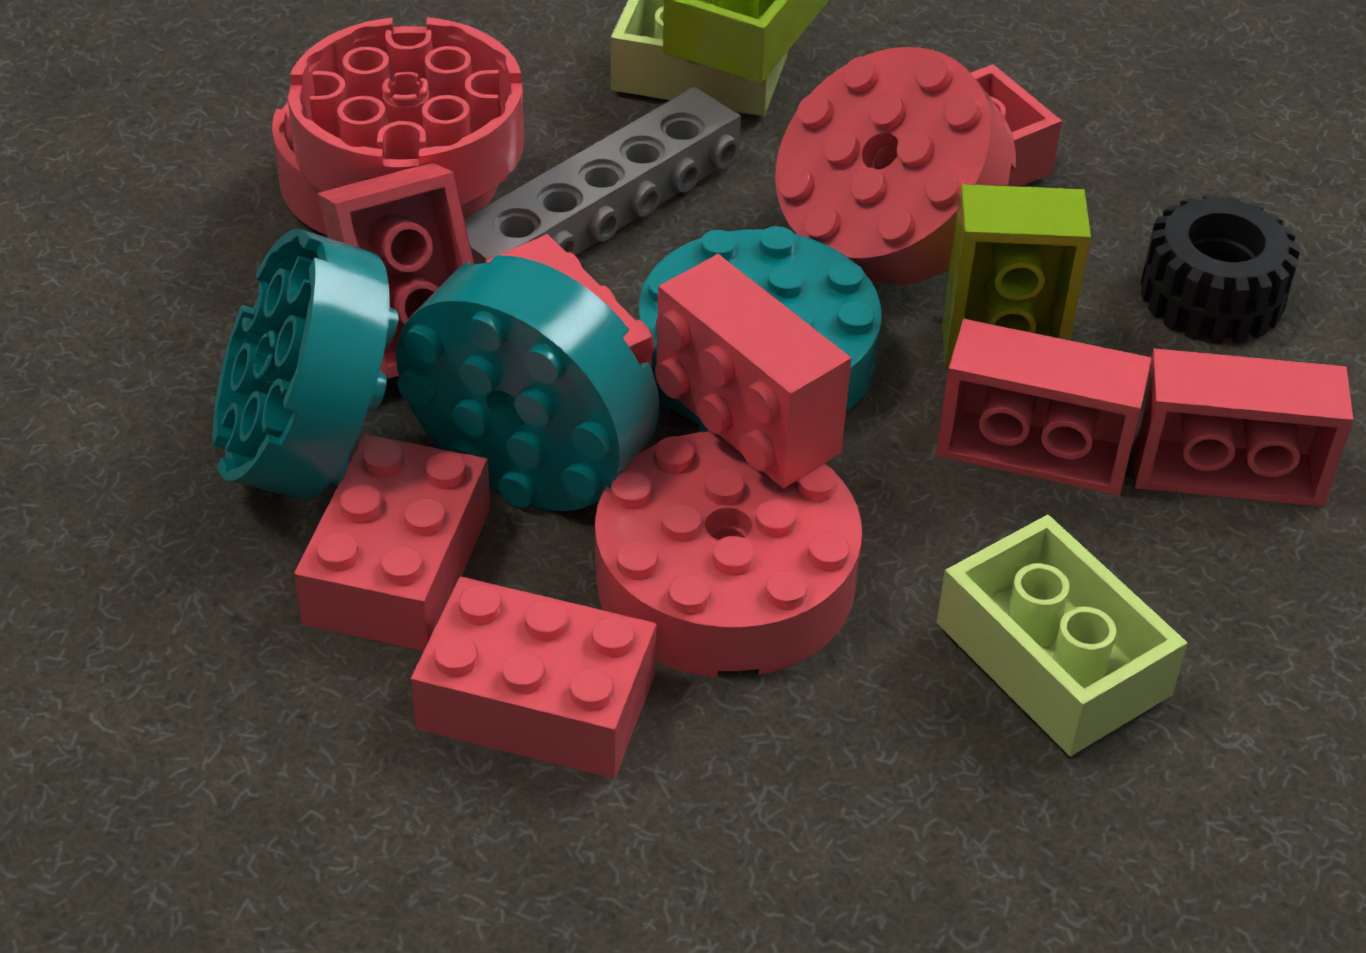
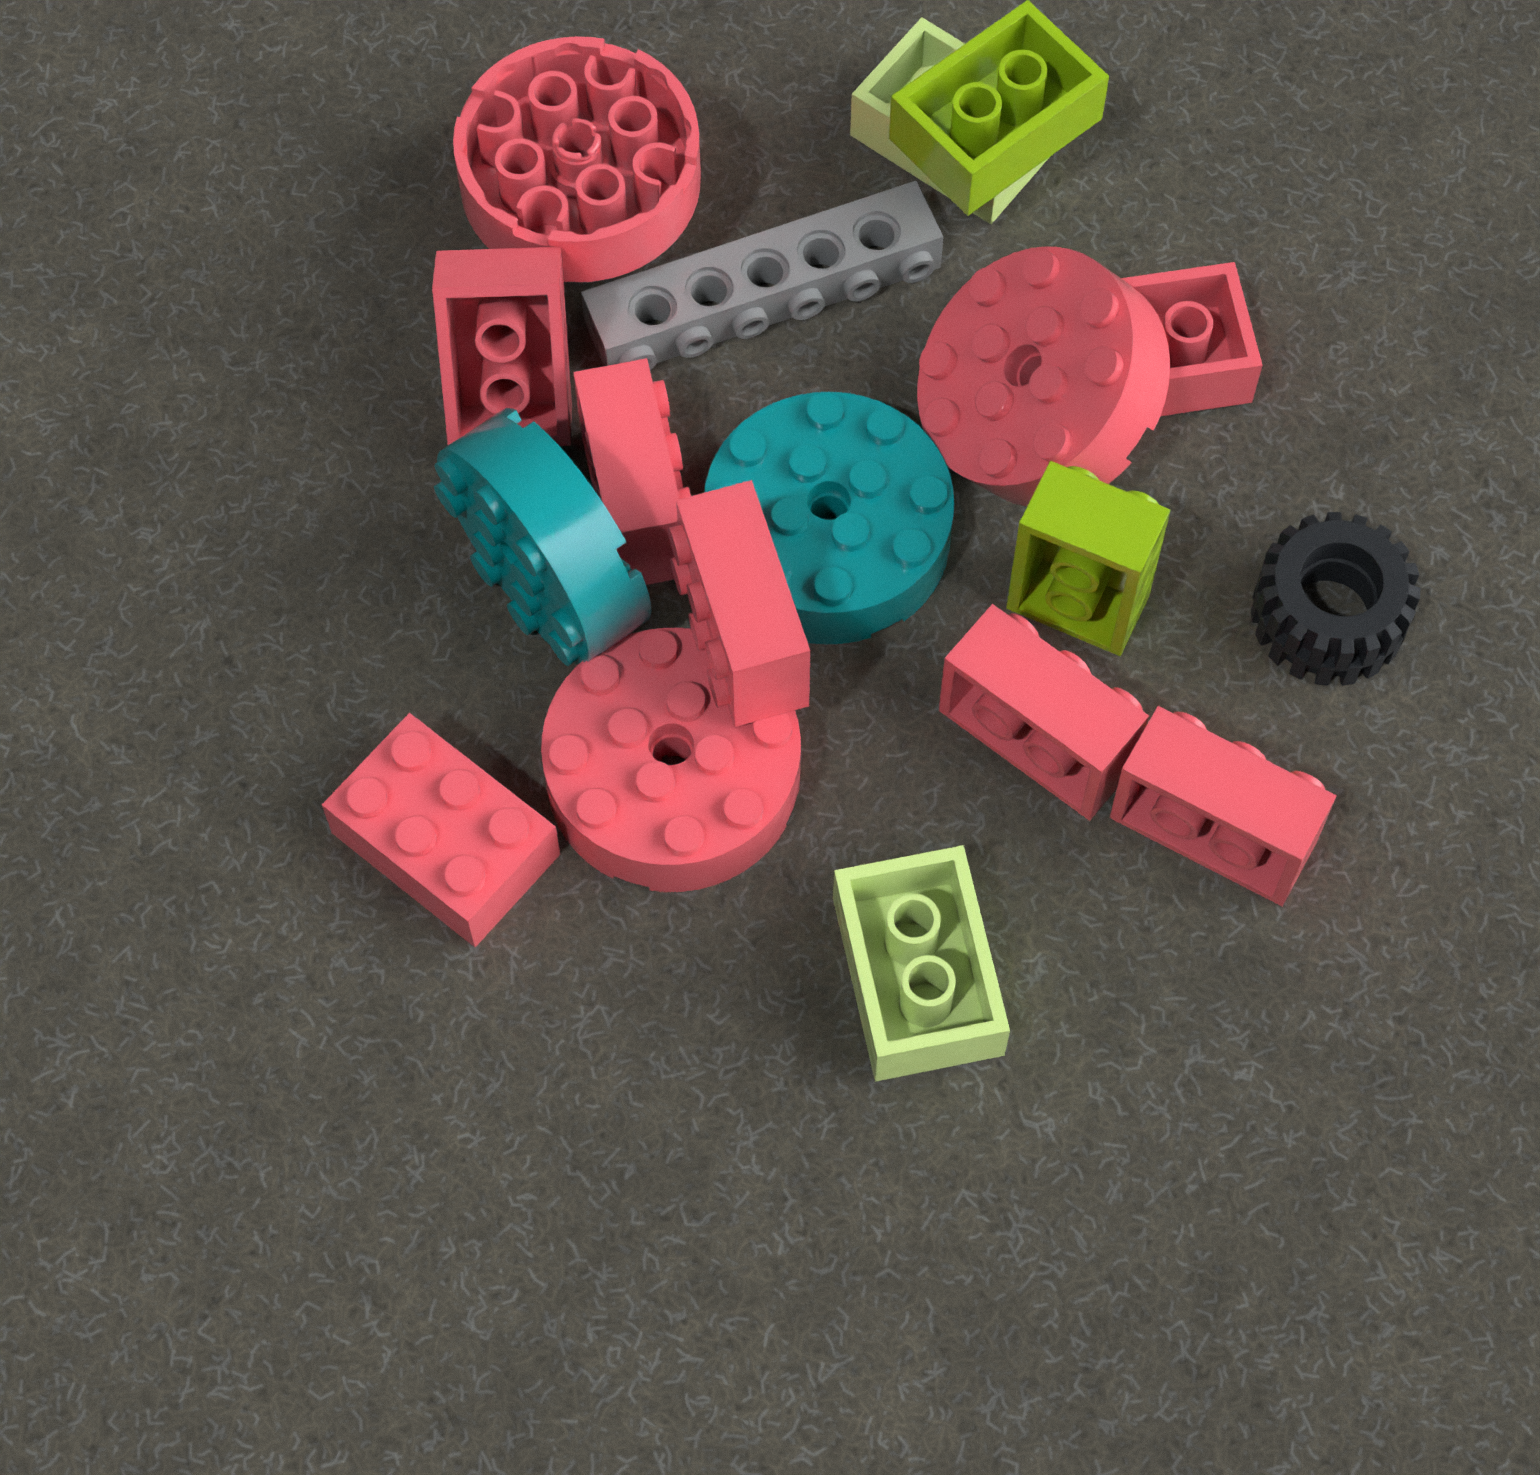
camera: 25 degrees right, 20 degrees up
(303, 366) = (353, 444): teal brick -> none
(393, 542) = (384, 638): coral brick -> none

